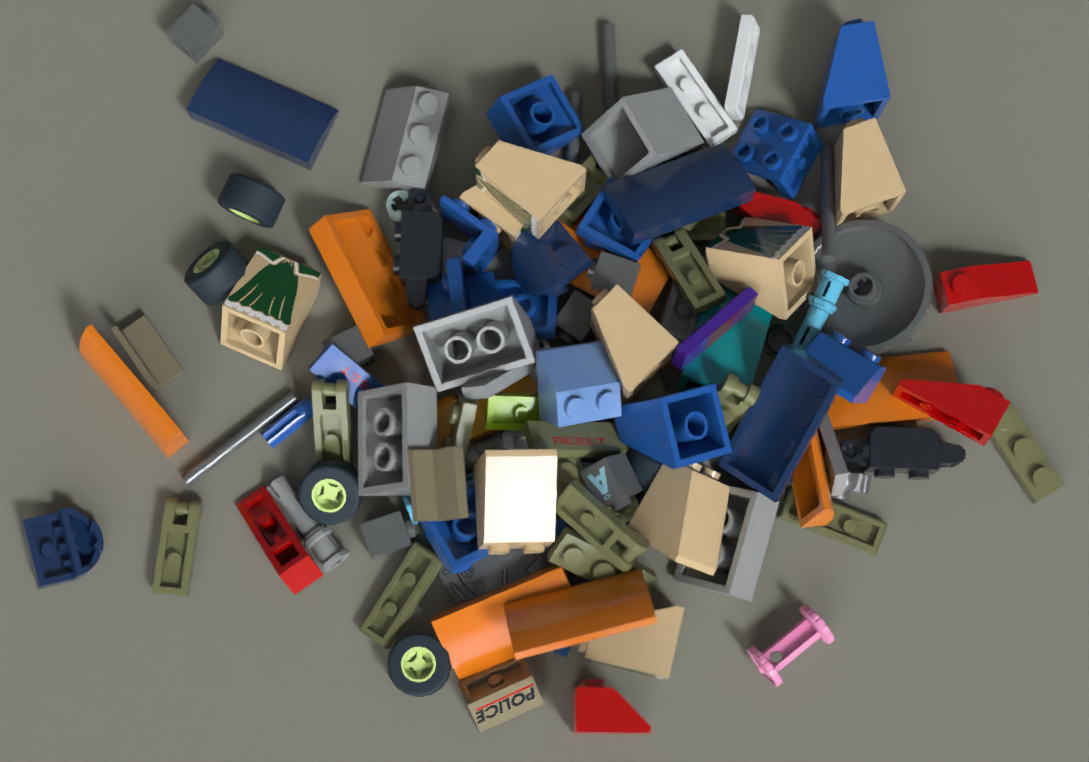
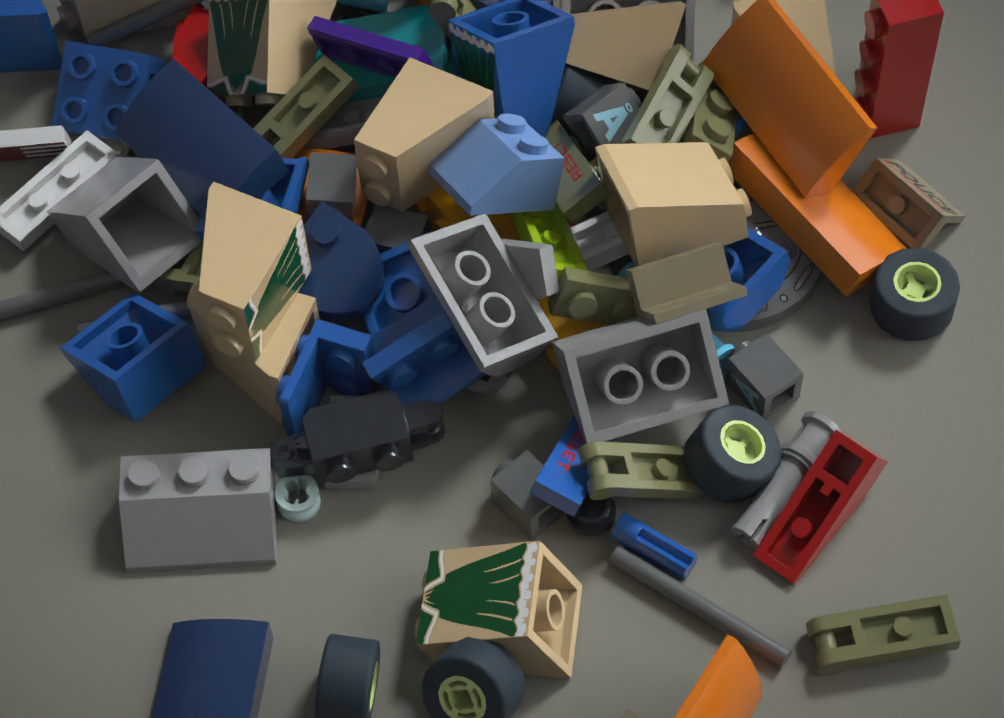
camera: 100 degrees left, 20 degrees down
(365, 277) = (417, 498): orange slope -> none
(401, 595) = (836, 340): olive tile -> none

